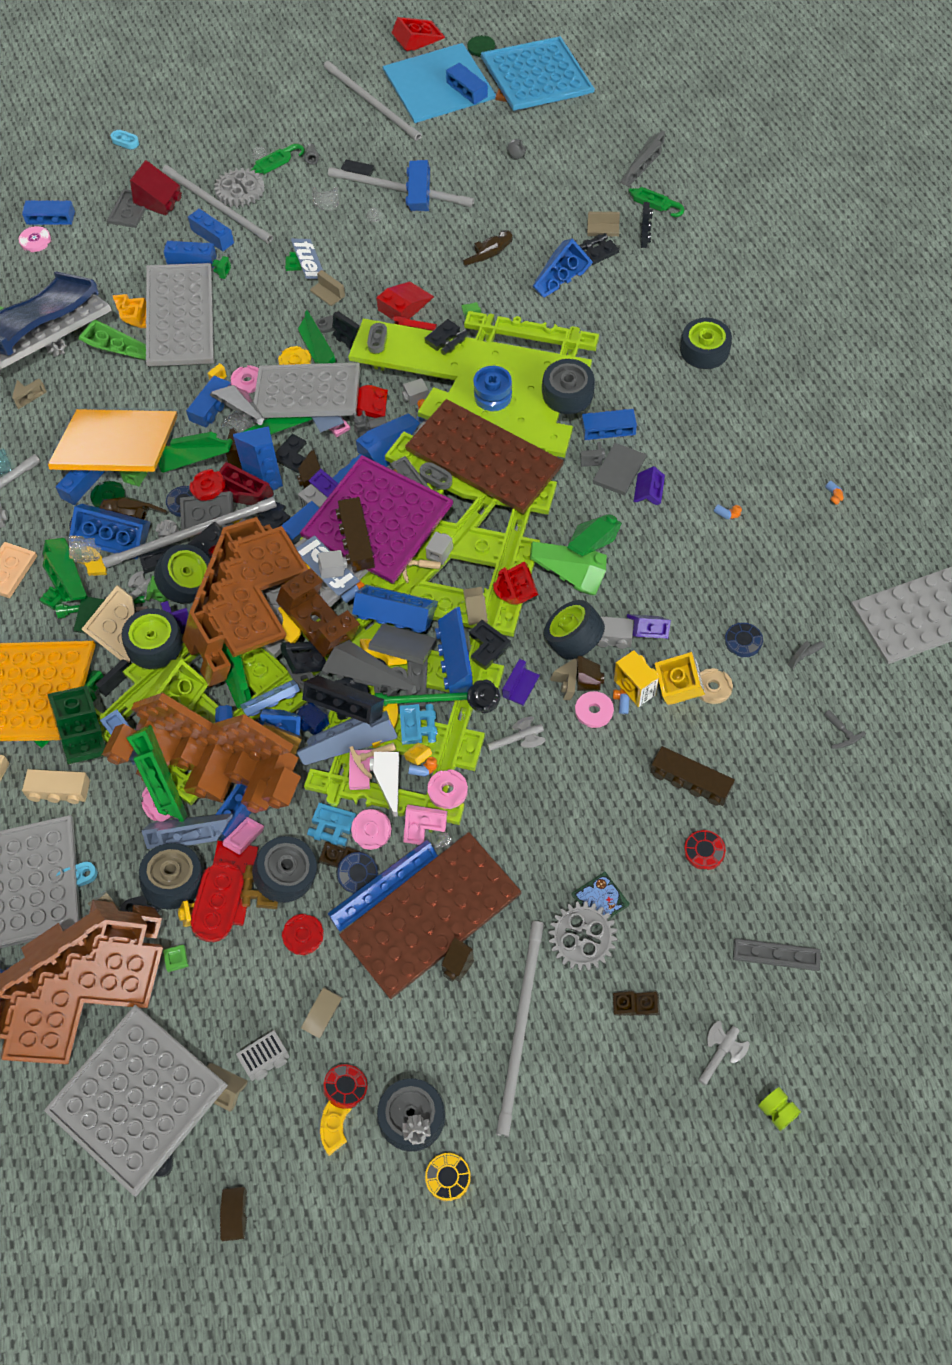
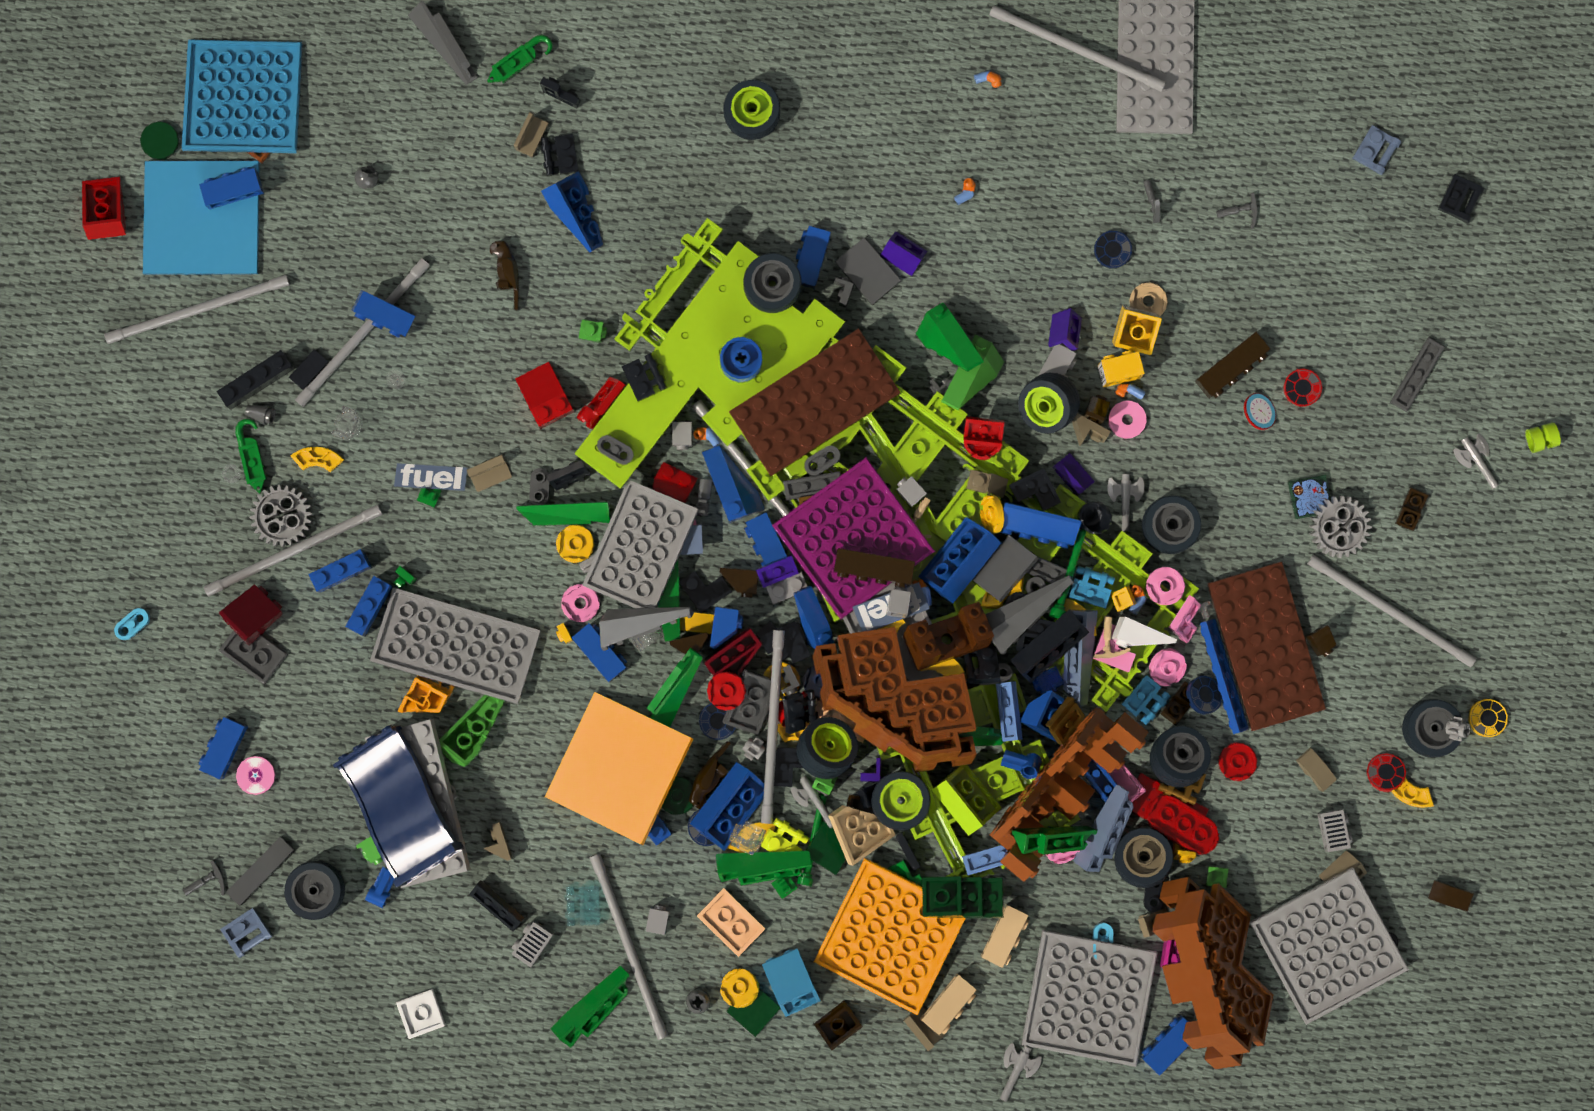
camera: 70 degrees left, 25 degrees up
(89, 574) = (775, 842): none -> neon yellow plate
(293, 194) = (317, 456): none -> yellow tile
(334, 140) = (255, 379): none -> black brick
(435, 616) = (992, 514): none -> yellow tile
(511, 779) = (1183, 516): none -> wheel
(660, 816) = (1259, 411): none -> piece
(912, 603) = (1006, 16): none -> light grey piece

